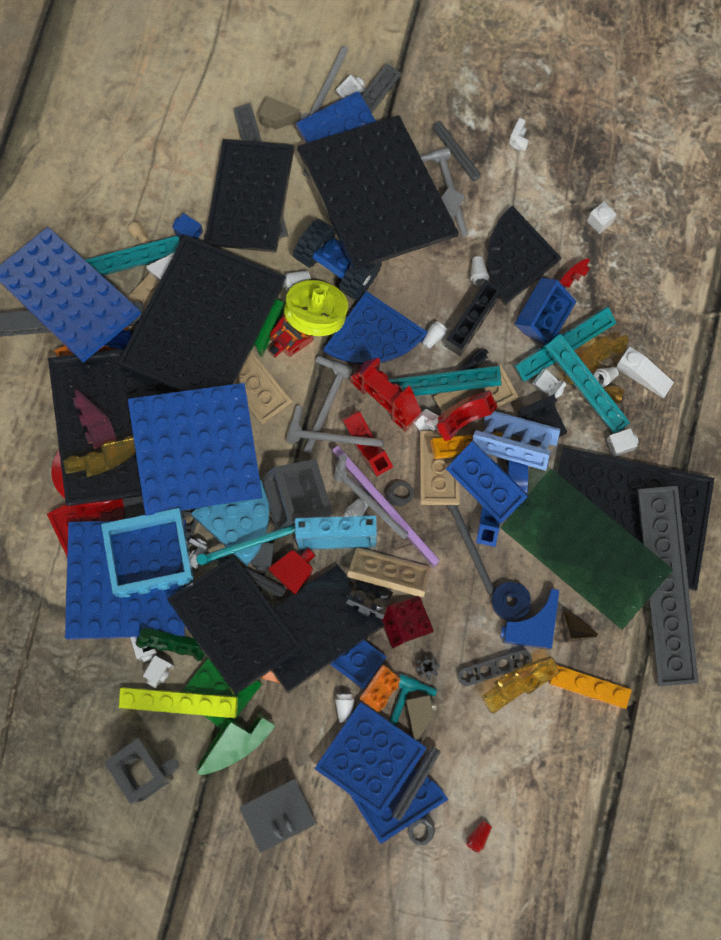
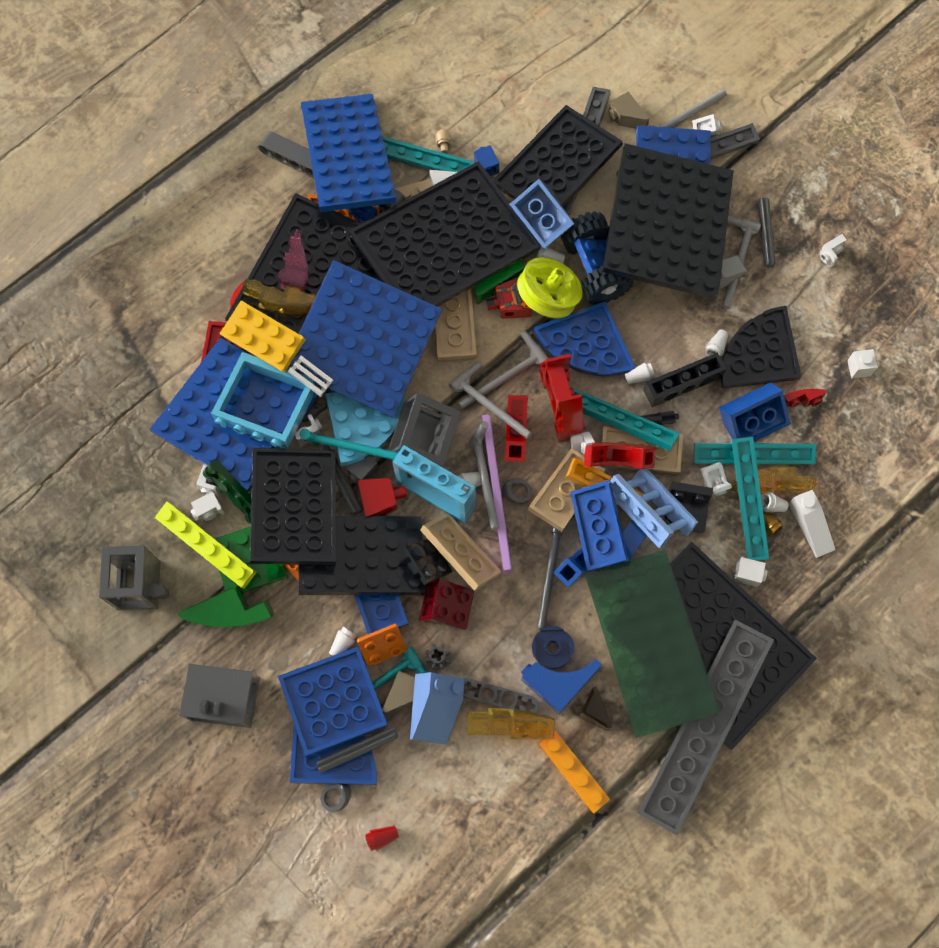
camera: 35 degrees right, 5 degrees down
(110, 500) = (262, 336): none -> yellow plate
(175, 508) = (296, 365): none -> white tile
(271, 249) = (542, 213): none -> medium blue slope
(454, 708) = (435, 706): none -> medium blue slope

